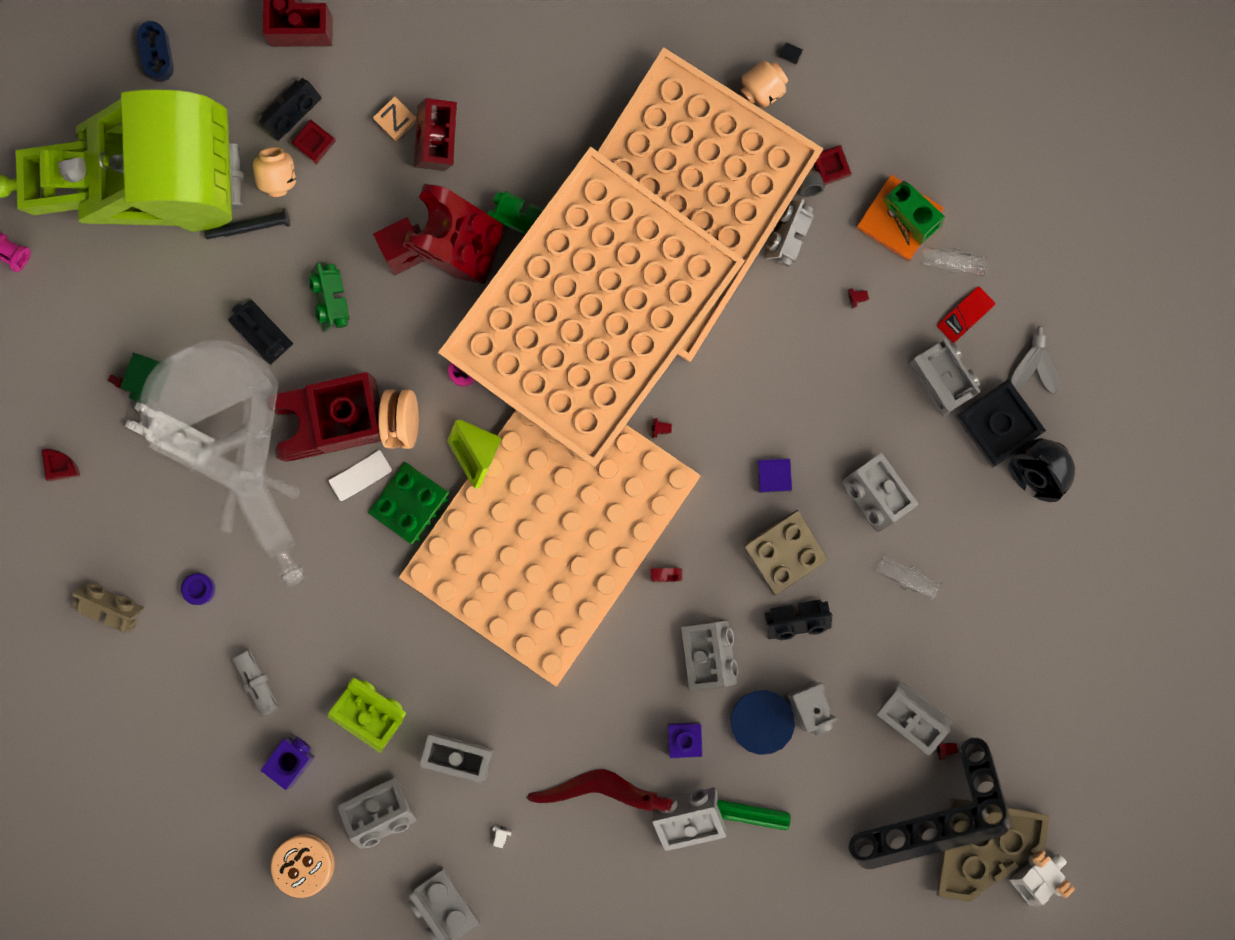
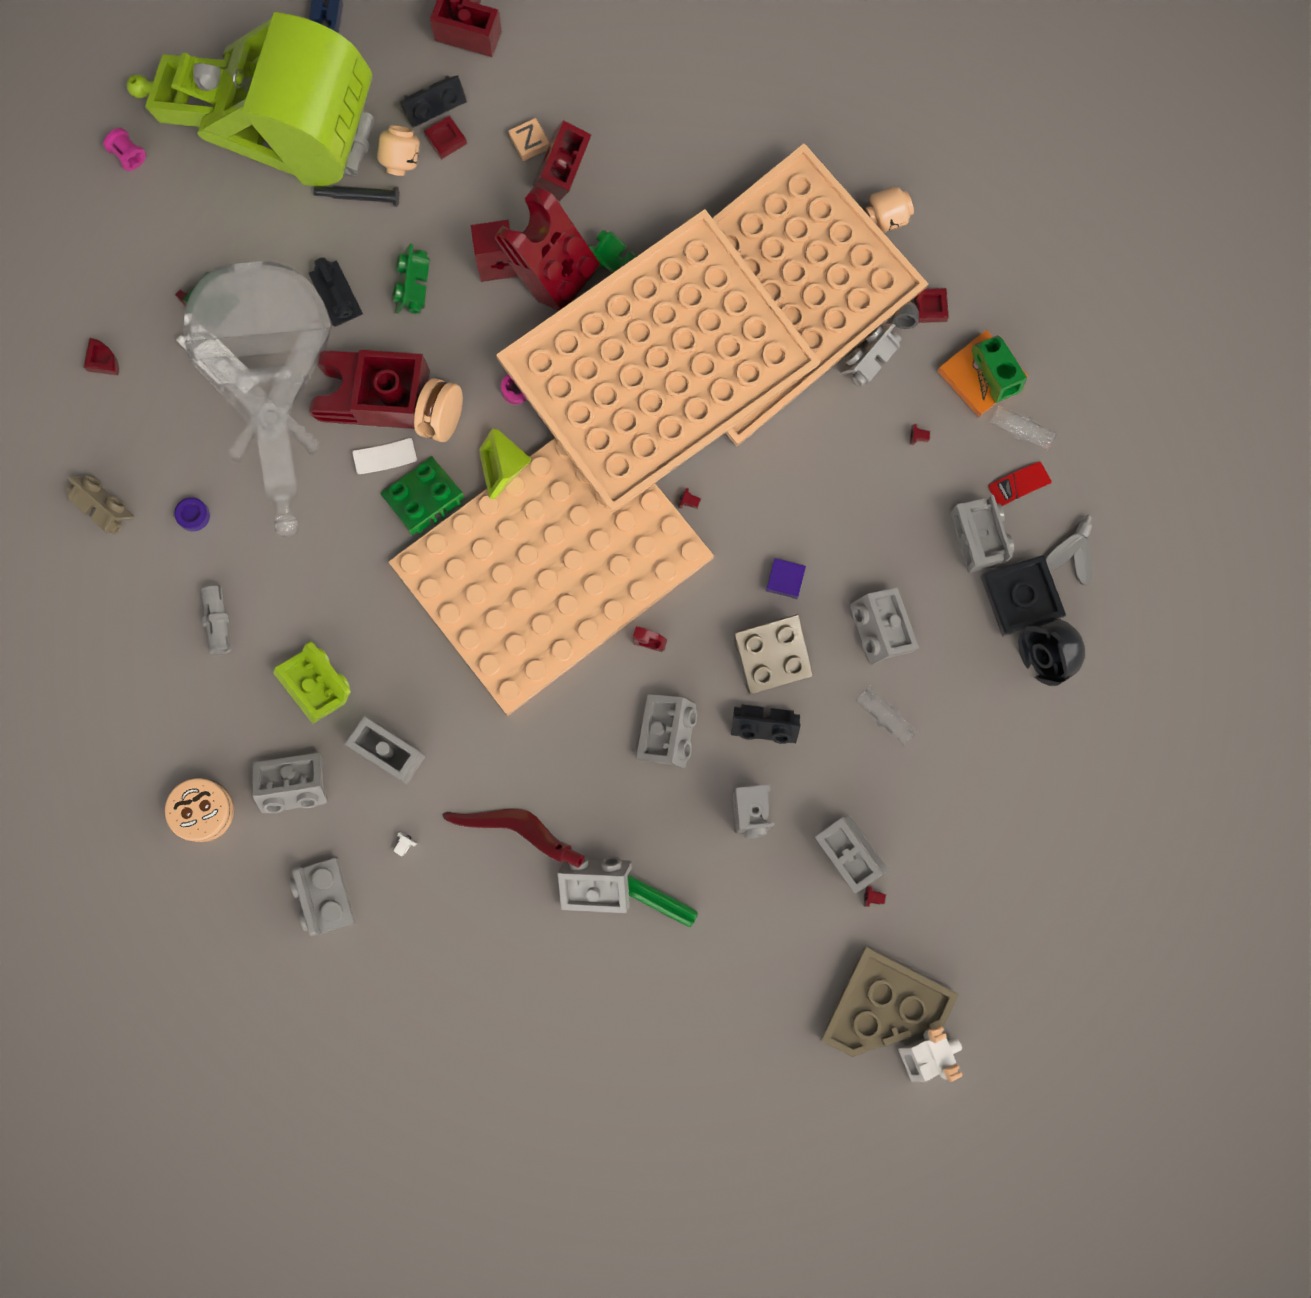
camera: 10 degrees right, 5 degrees down
(278, 772) = (205, 705): dark purple brick -> none
(685, 740) = (616, 804): dark purple brick -> none
(762, 722) = (699, 813): dark blue tile -> none
(791, 53) = (924, 192): black piece -> none
(942, 821) = (848, 964): black beam -> none

